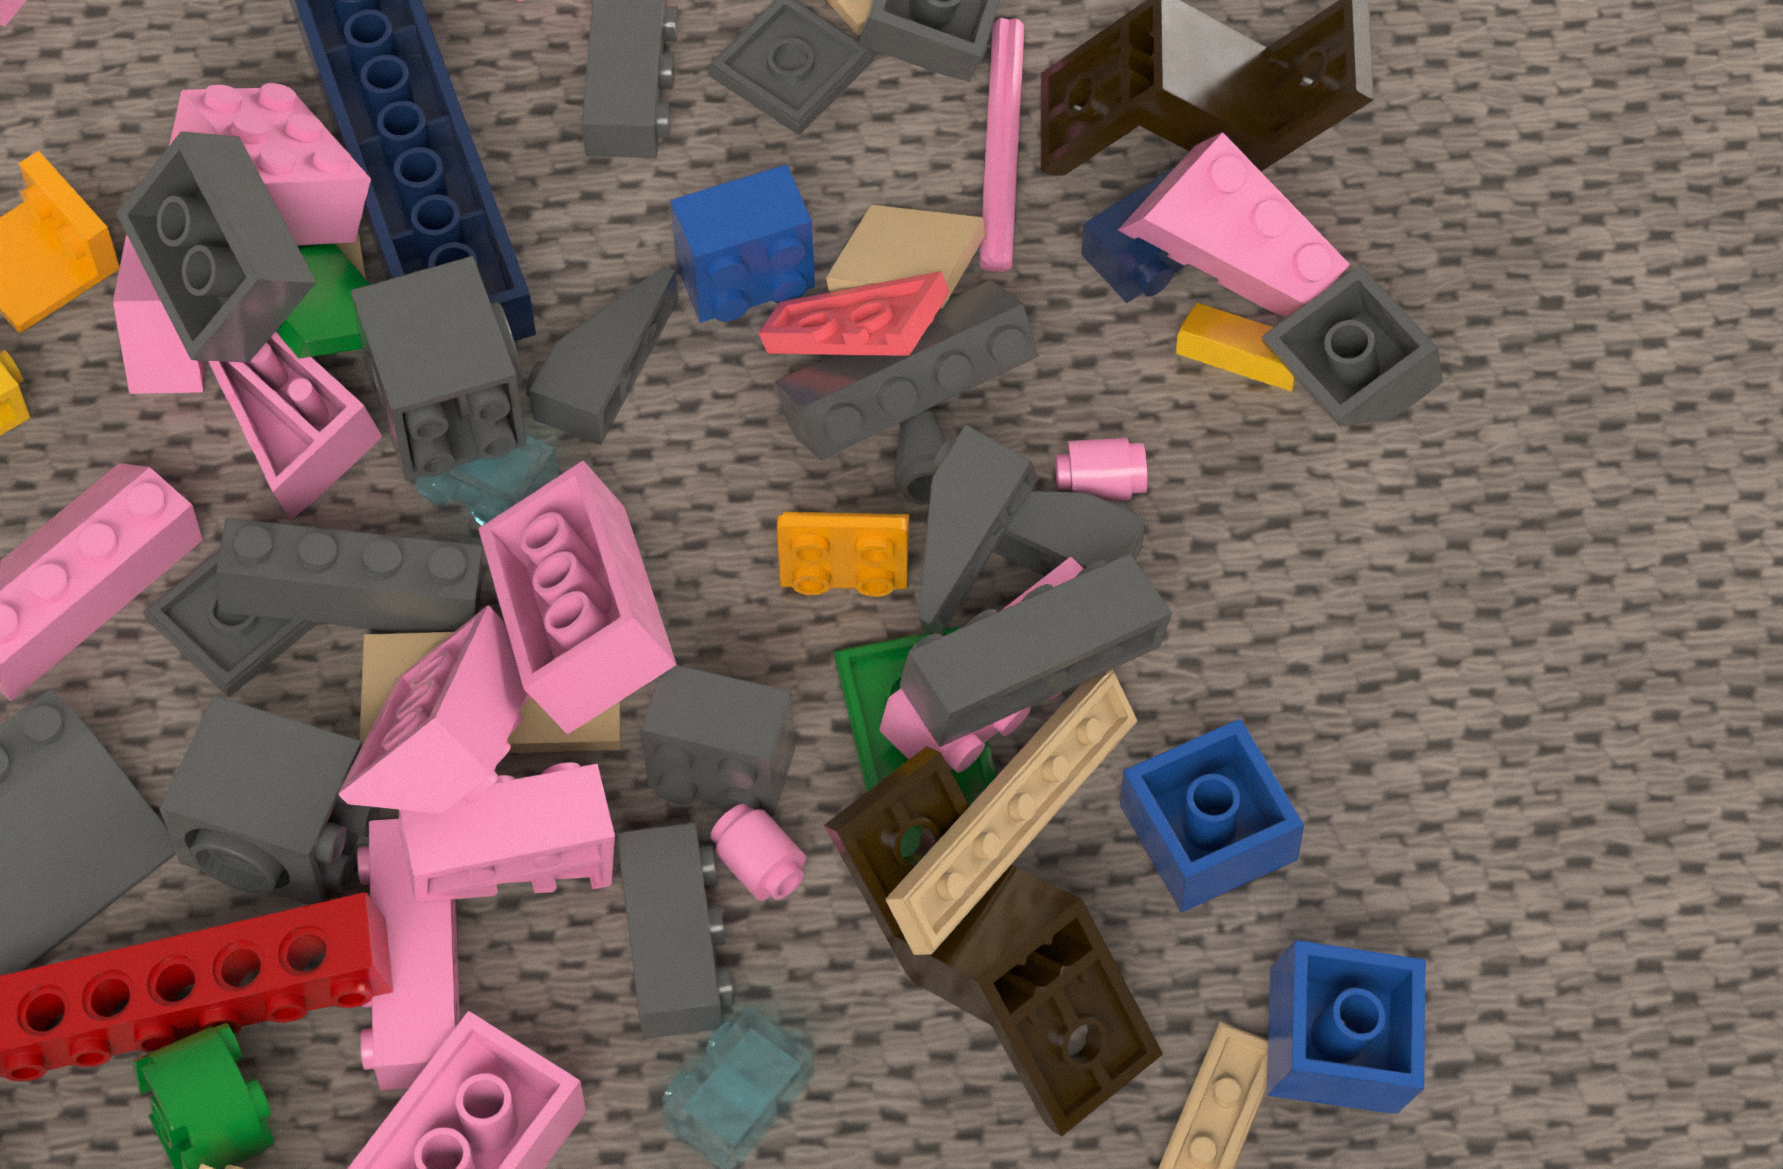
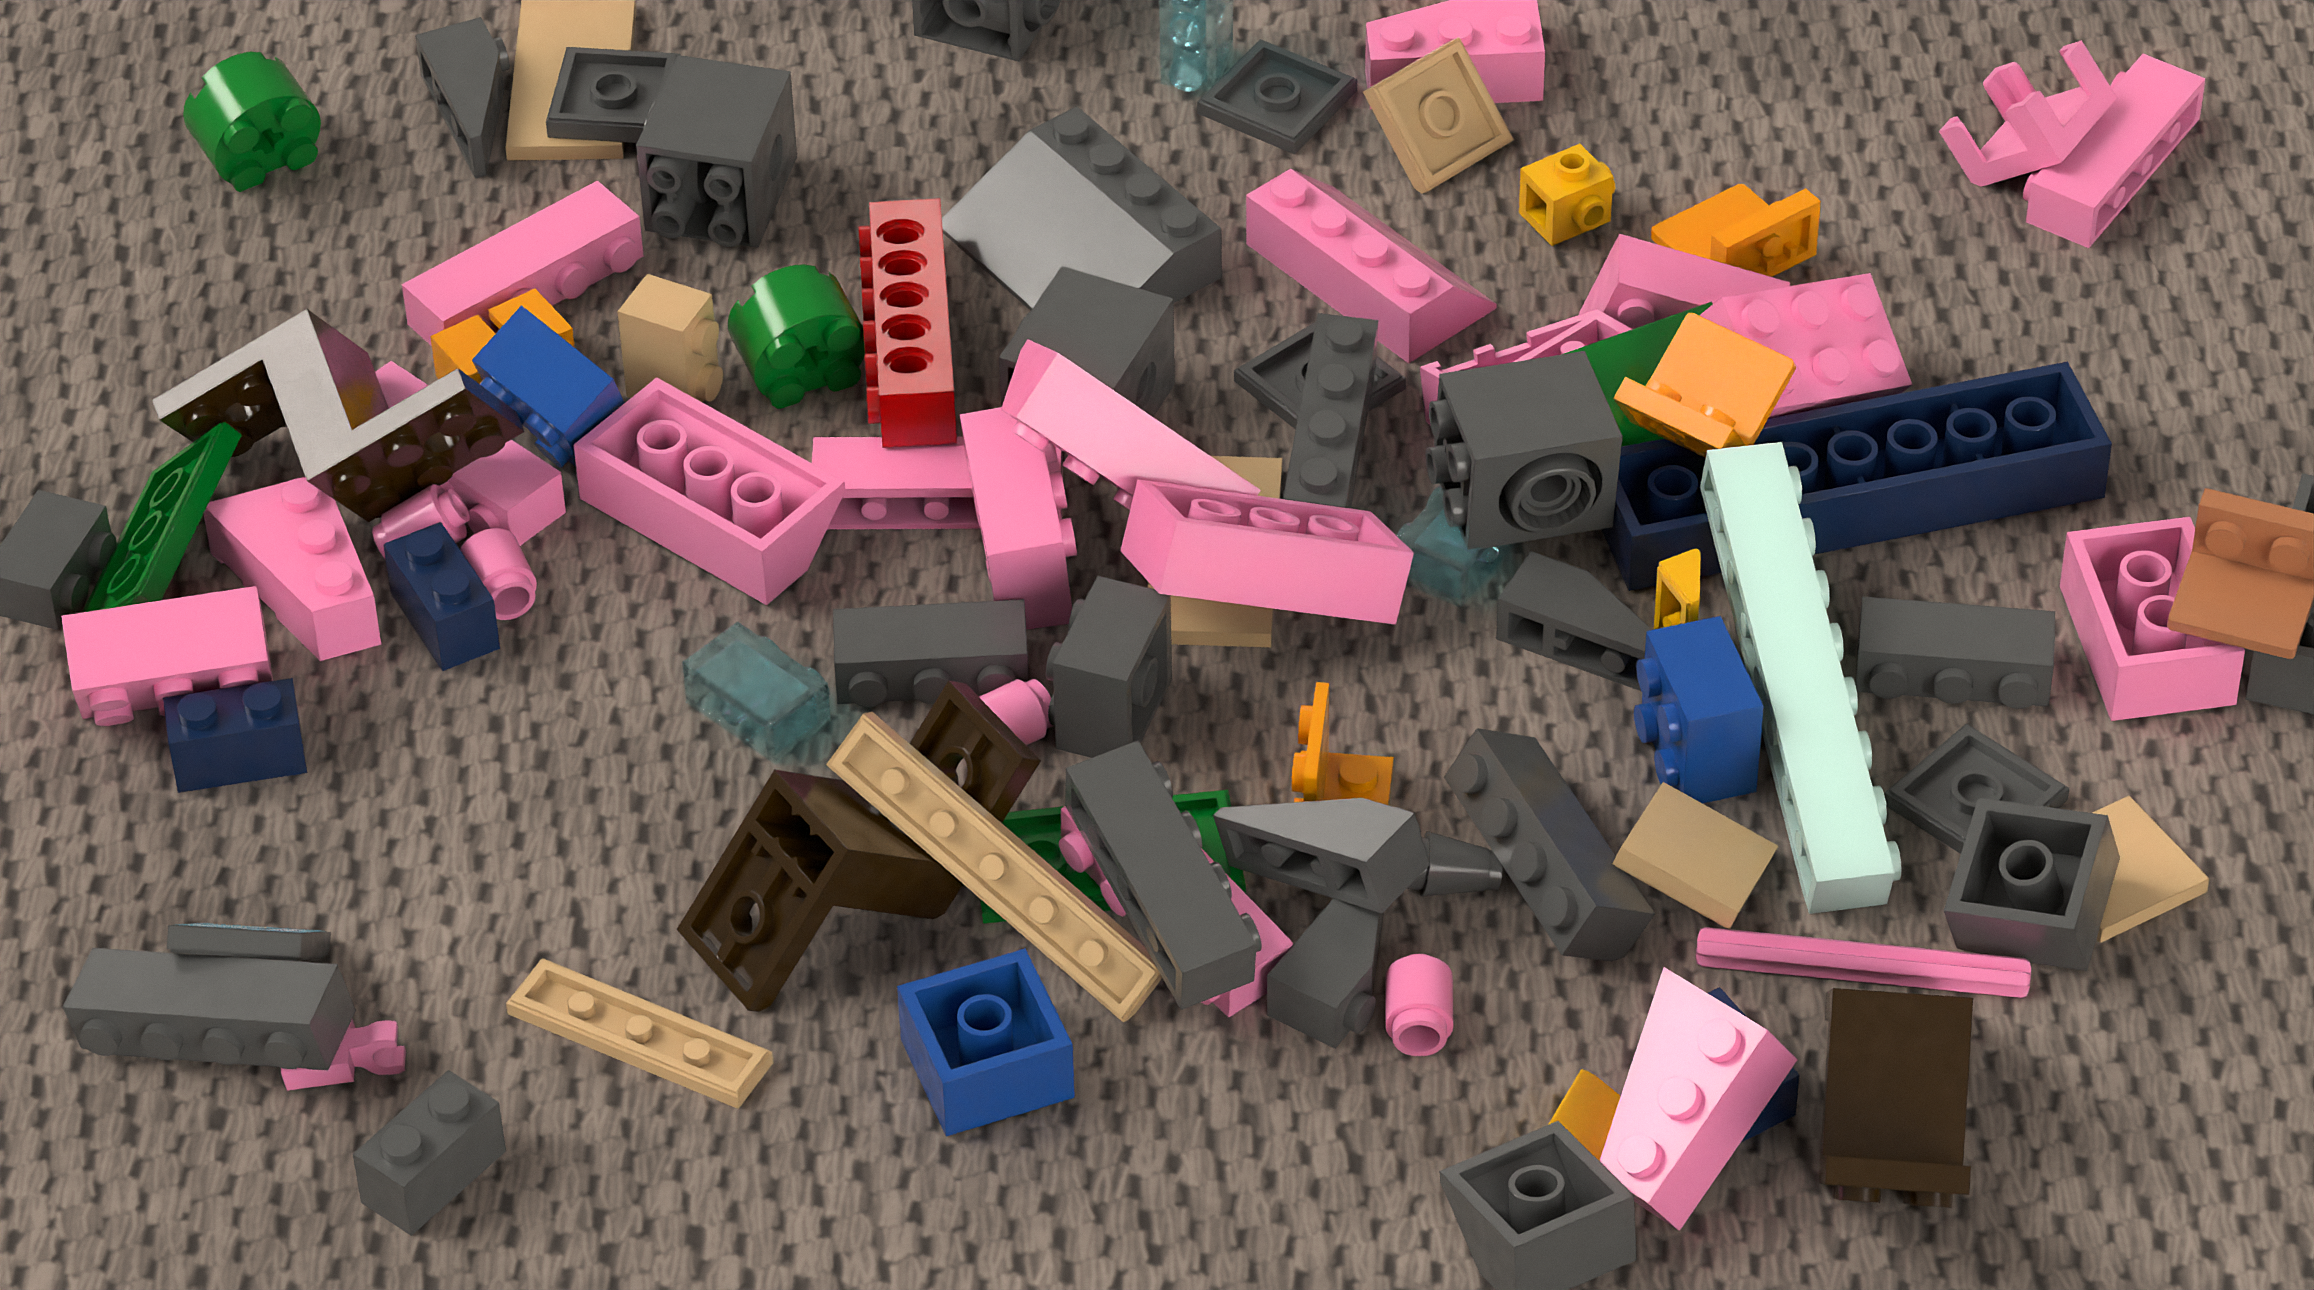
camera: 95 degrees right, 15 degrees down
(215, 247) = (1651, 273): dark grey brick -> none
(367, 210) = (1708, 388): none -> light orange bracket
(616, 254) = (1678, 590): none -> yellow slope
(639, 167) = (1796, 669): none -> light aqua brick
(857, 320) = (1591, 786): coral wing -> none
(1346, 1027) = (728, 1118): blue brick -> none

